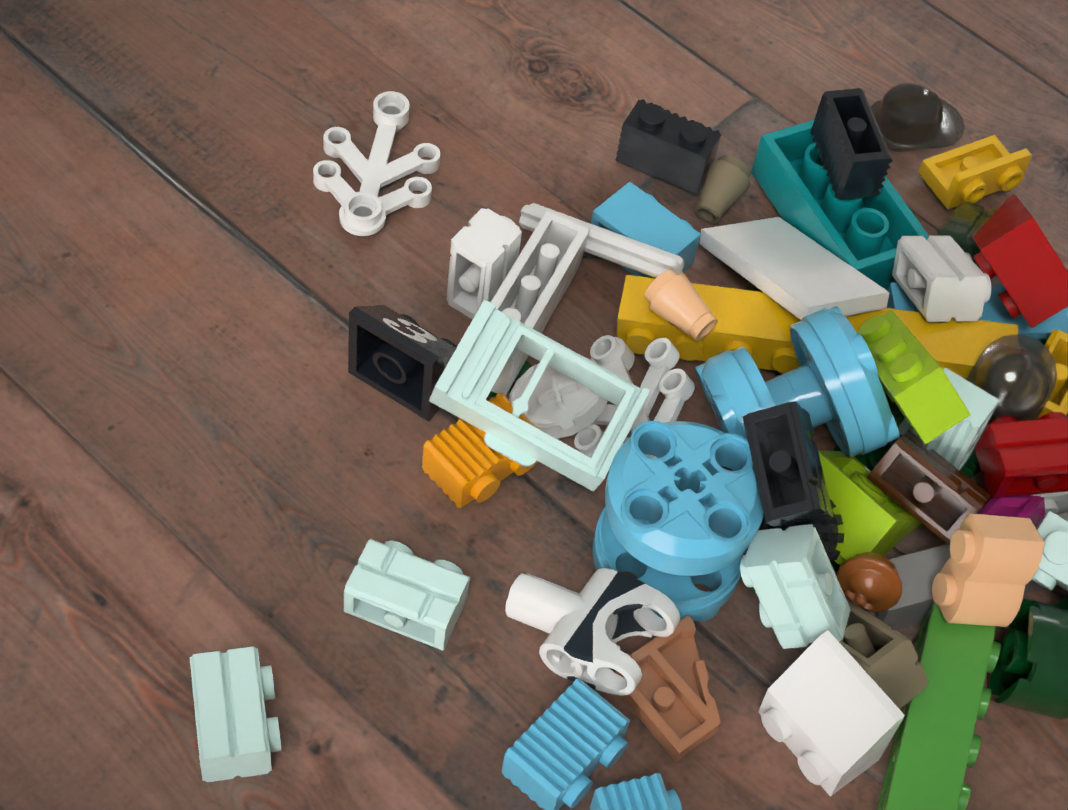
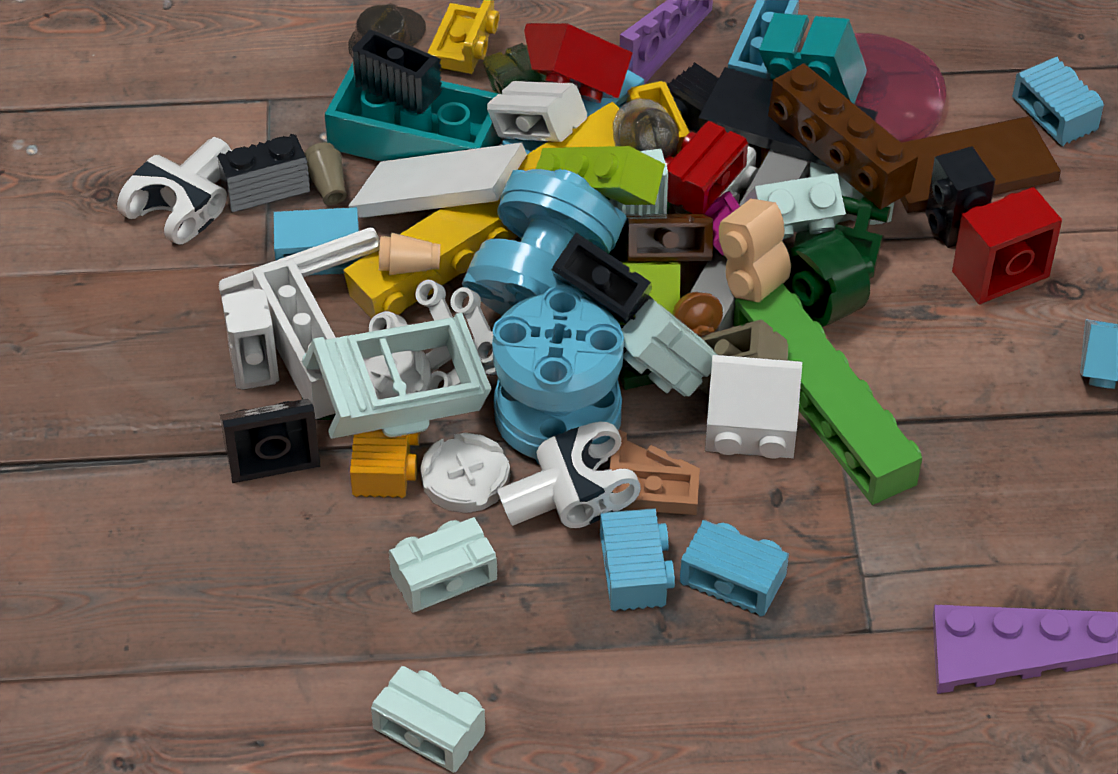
camera: 40 degrees left, 5 degrees down
(363, 211) = (113, 378): white plant -> none
(529, 533) = (464, 472): none -> white tile
(590, 106) = (183, 189): none -> white connector

